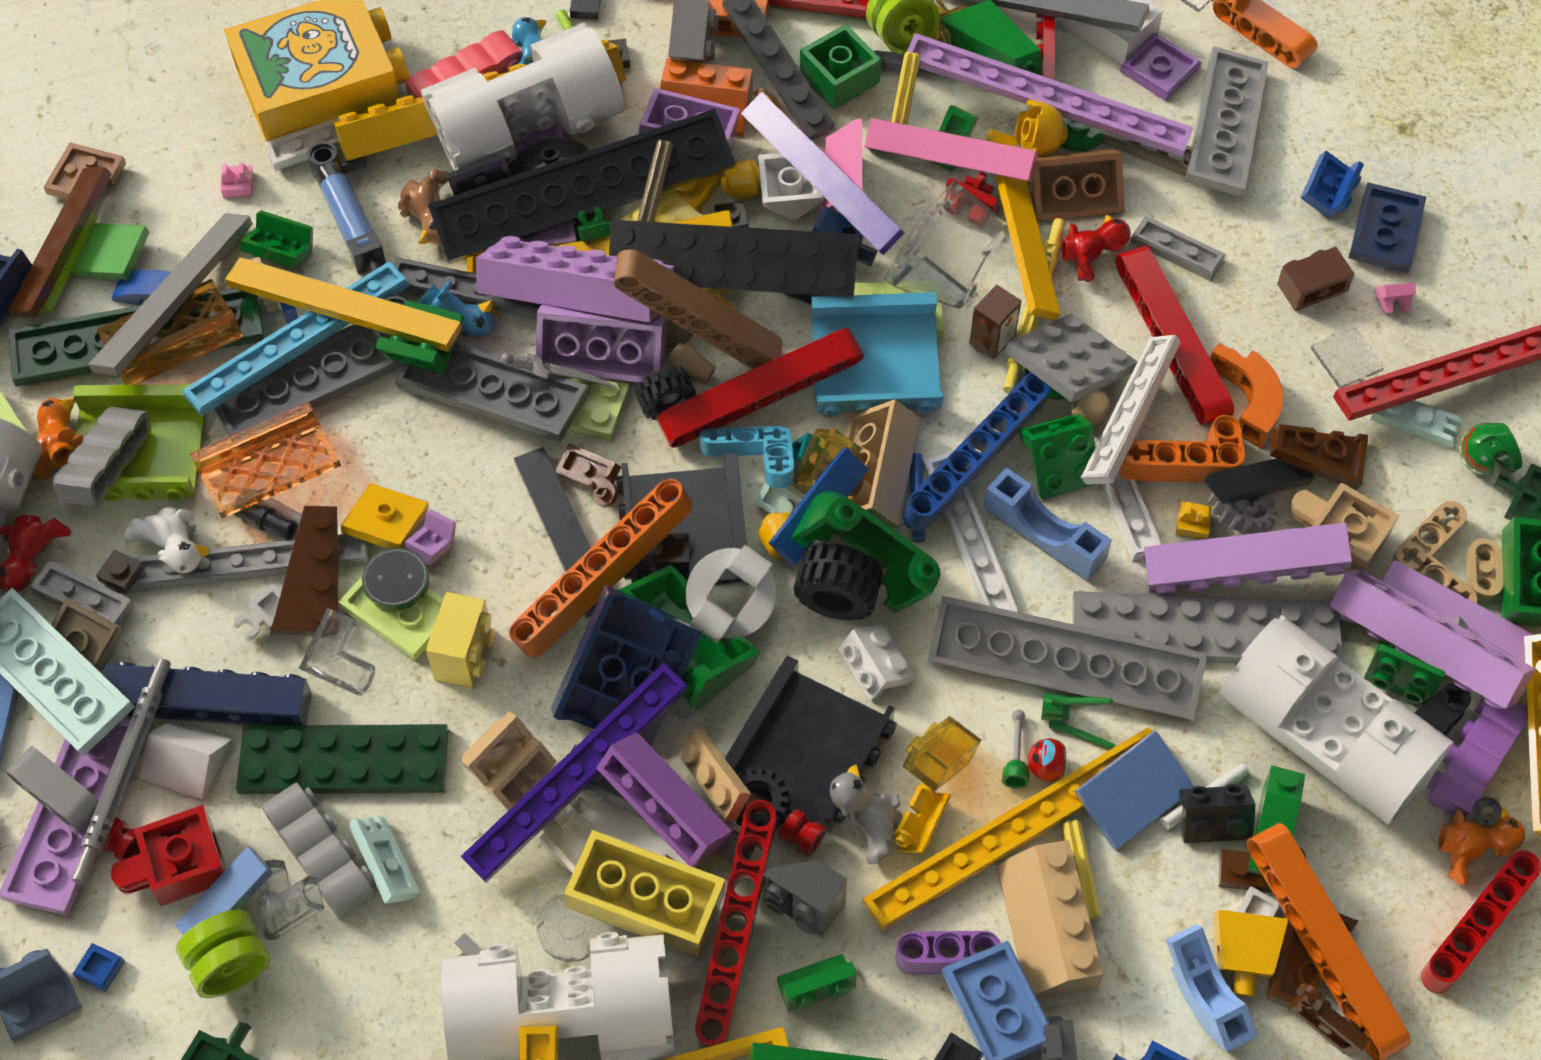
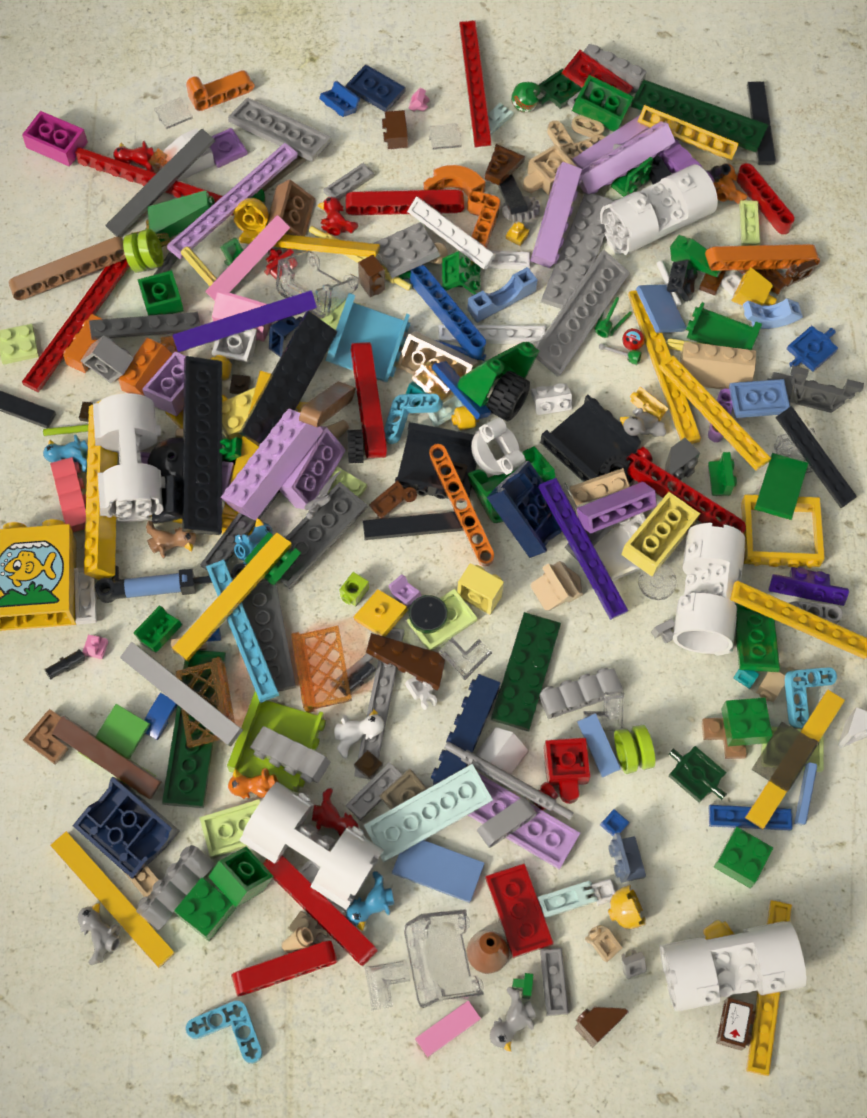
camera: 75 degrees left, 5 degrees up
(197, 153) = (64, 664): none -> black pin
(384, 859) = (596, 661): light aqua hinge -> none
(421, 479) = (357, 582): none -> lime brick
(655, 181) = (221, 404): dark tan axle -> none
(933, 932) = (715, 413): none -> yellow tile
(941, 752) = (619, 381): clear yellow brick -> none
(1136, 914) = (720, 330): none -> green panel
(1408, 906) = (749, 223): none -> yellowish green plate

